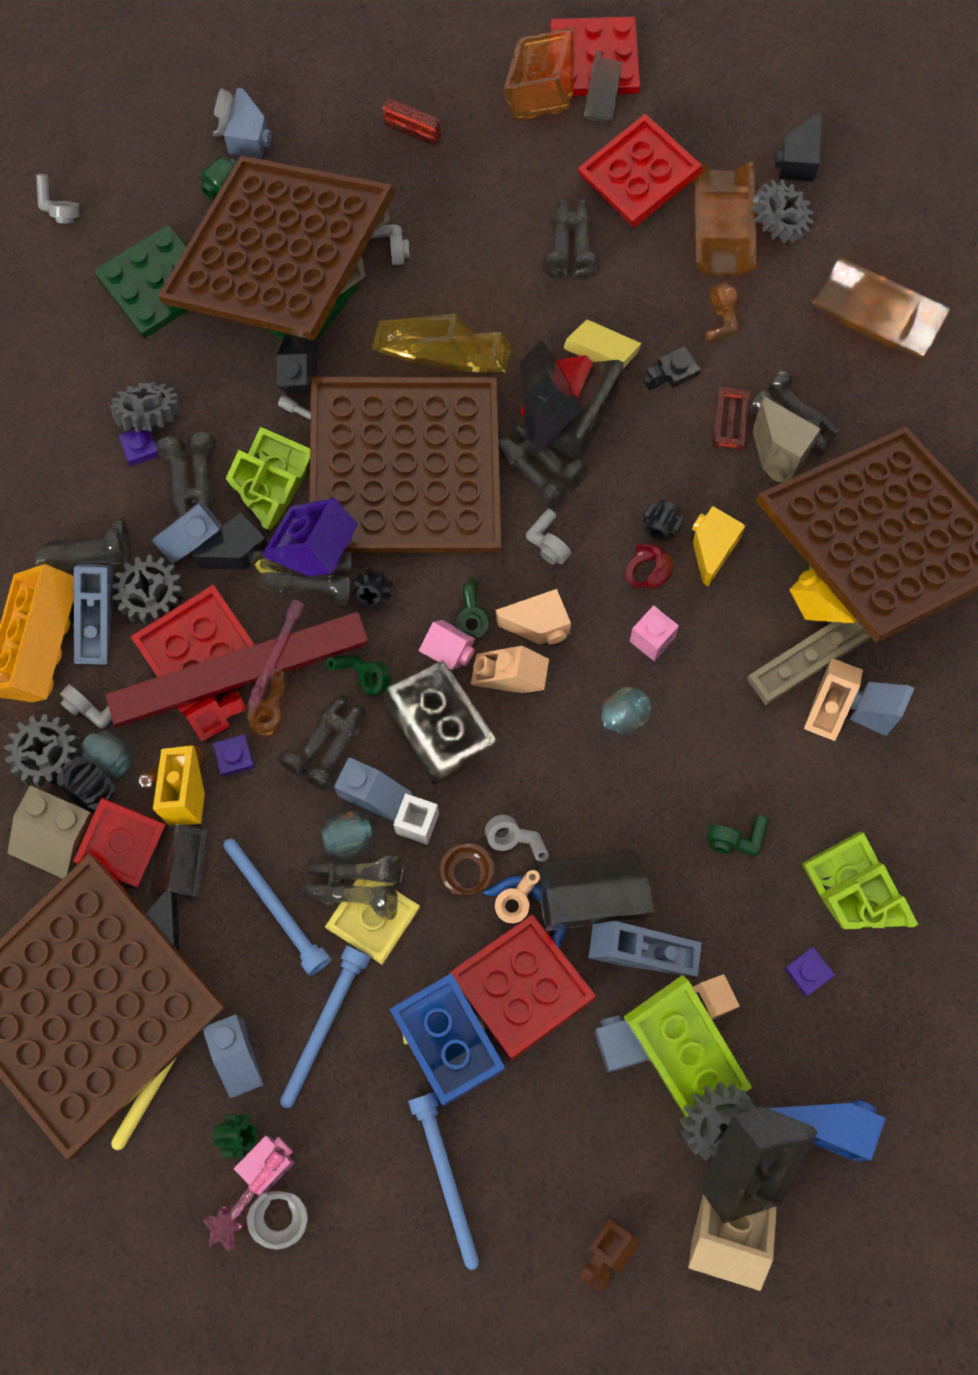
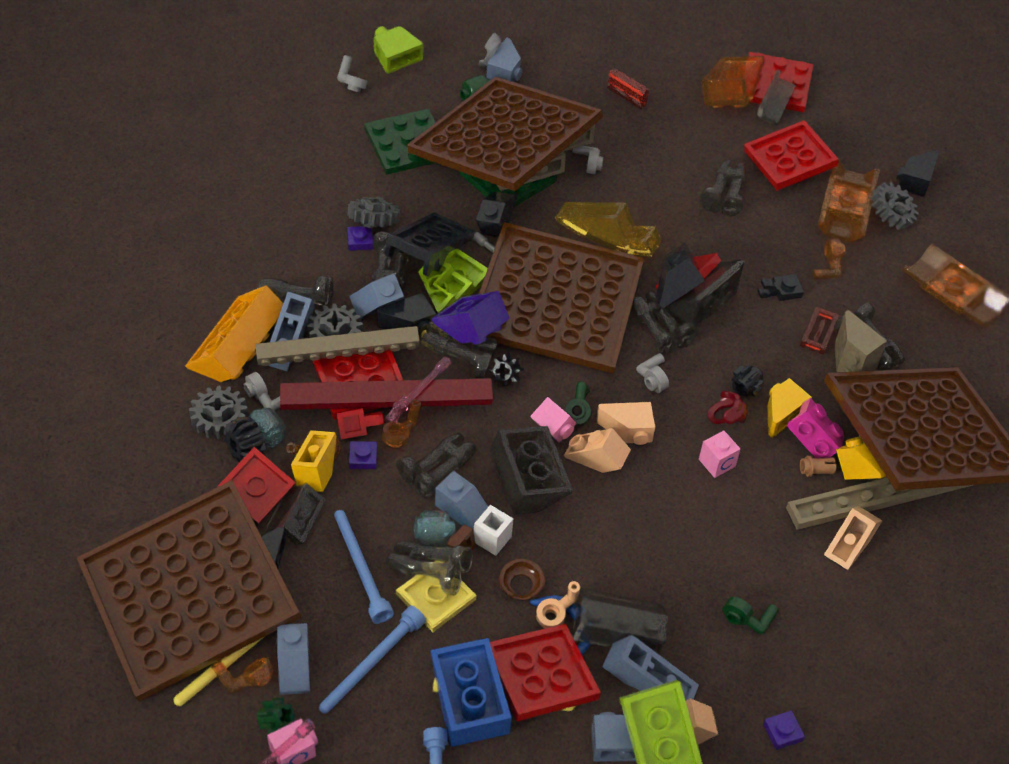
camera: 10 degrees right, 20 degrees down
(48, 832) = (202, 463): dark tan slope -> none
(100, 141) = (396, 48): none -> lime torso
(156, 620) = (337, 345): none -> dark tan piece
(195, 1087) = (256, 673): none -> clear orange plate
(227, 433) = (429, 240): none -> black hinge
(373, 676) = (487, 426): dark green plate -> none
(383, 843) = (463, 537): none -> reddish brown plate
(512, 835) = (567, 565): light grey plate -> none
(601, 344) = (729, 253): light yellow tile -> none
(626, 710) = (682, 500): clear light blue head -> none
(761, 568) = (816, 430): none -> dark pink bracket
(769, 613) = (817, 466): none -> medium nougat pin
(860, 886) = (841, 677): lime slope -> none
(880, 706) = (890, 549): sand blue slope -> none

